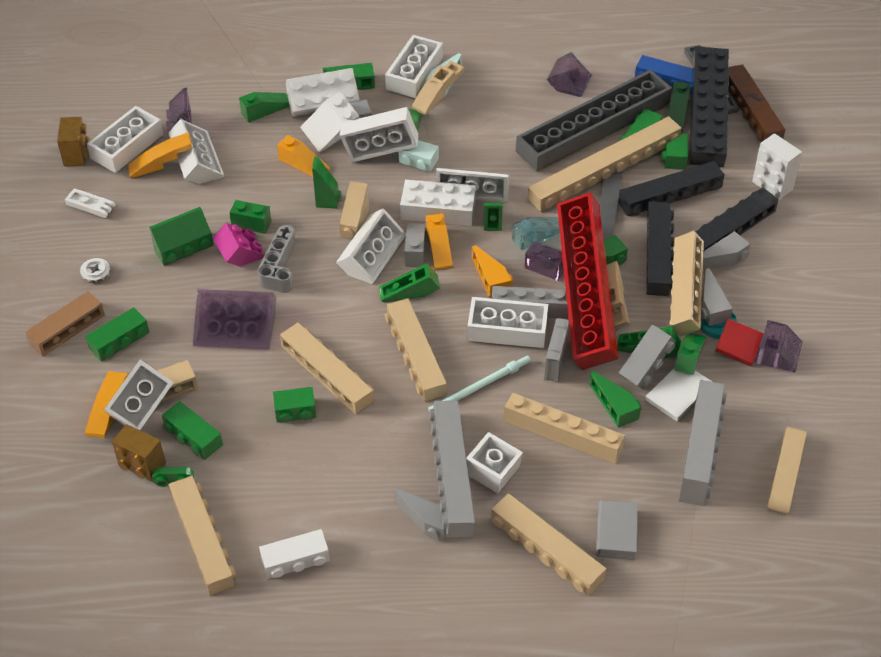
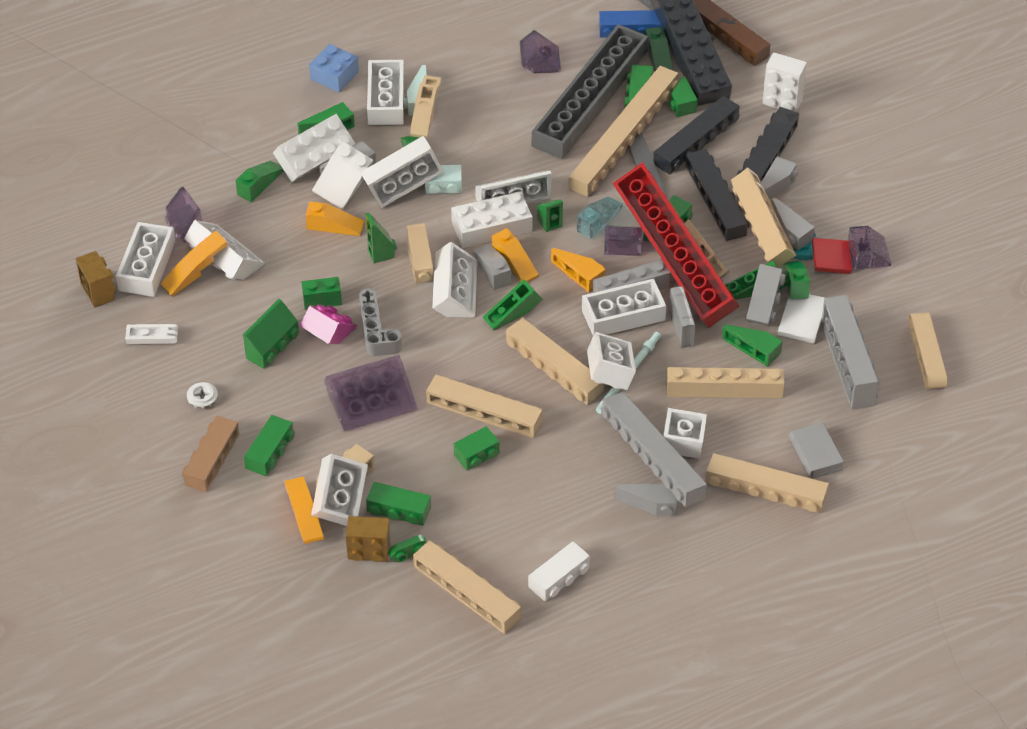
camera: 25 degrees left, 0 degrees up
(385, 34) = (334, 68): none -> medium blue brick
(461, 367) = (611, 361): none -> white brick

